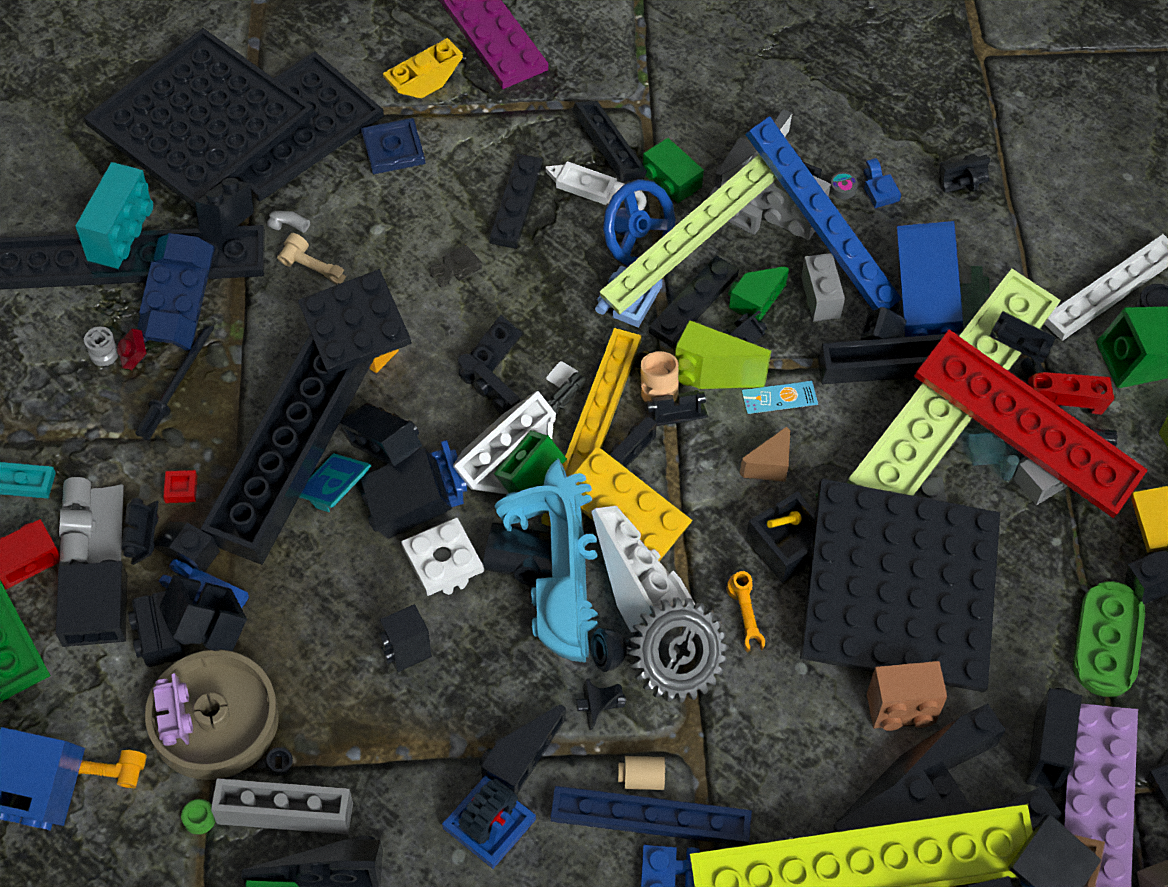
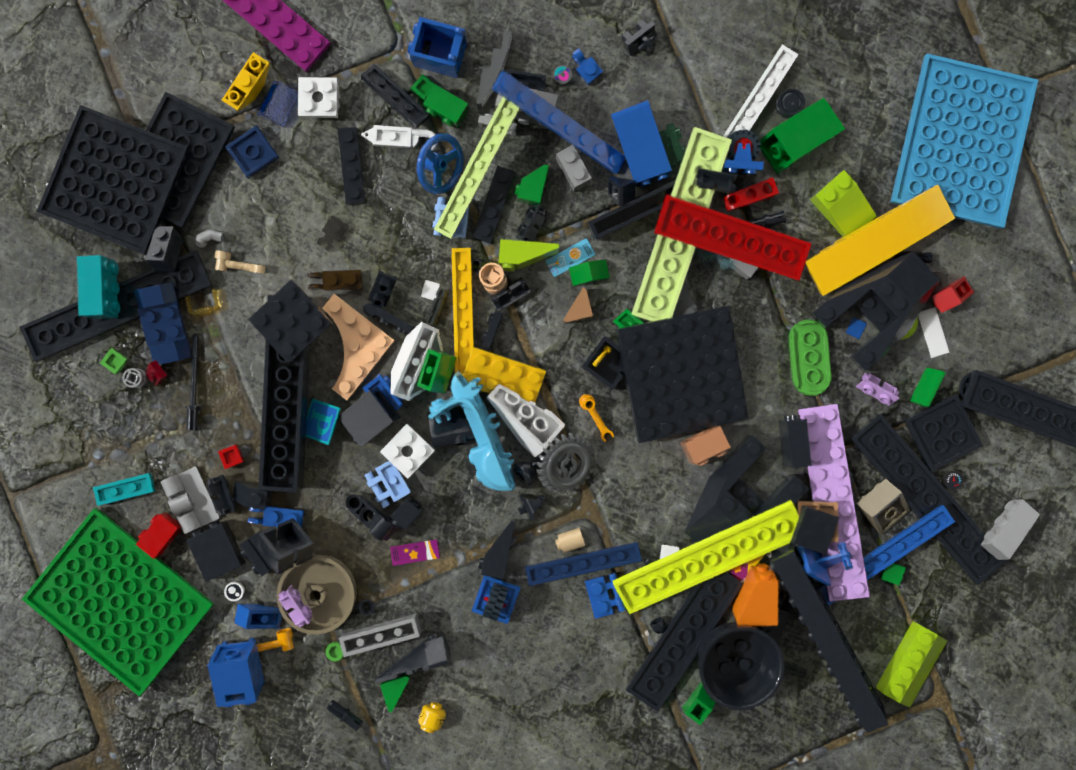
camera: 20 degrees left, 30 degrees up
(83, 318) = (114, 361): none -> bright green plate
(89, 672) = (234, 591): none -> tile
(107, 717) = (258, 616): none -> blue slope
(238, 301) = (206, 310): none -> clear yellow piece
(349, 632) = (380, 526): none -> black piece
(381, 434) = (338, 384): black brick -> none
(389, 713) = (414, 552): none -> magenta sticker
(401, 592) = (393, 481): none -> light blue plate
(436, 321) = (337, 280): none -> dark brown hinge
(438, 399) = (362, 344): none -> light nougat plate
(452, 105) = (278, 103): none -> clear blue brick
(508, 111) = (318, 97): none -> white piece
(646, 142) = (422, 87): none -> green tile
(688, 101) = (446, 47): none -> blue container
(802, 417) = (589, 272): none -> green slope
(1075, 334) = (742, 153): none -> plate

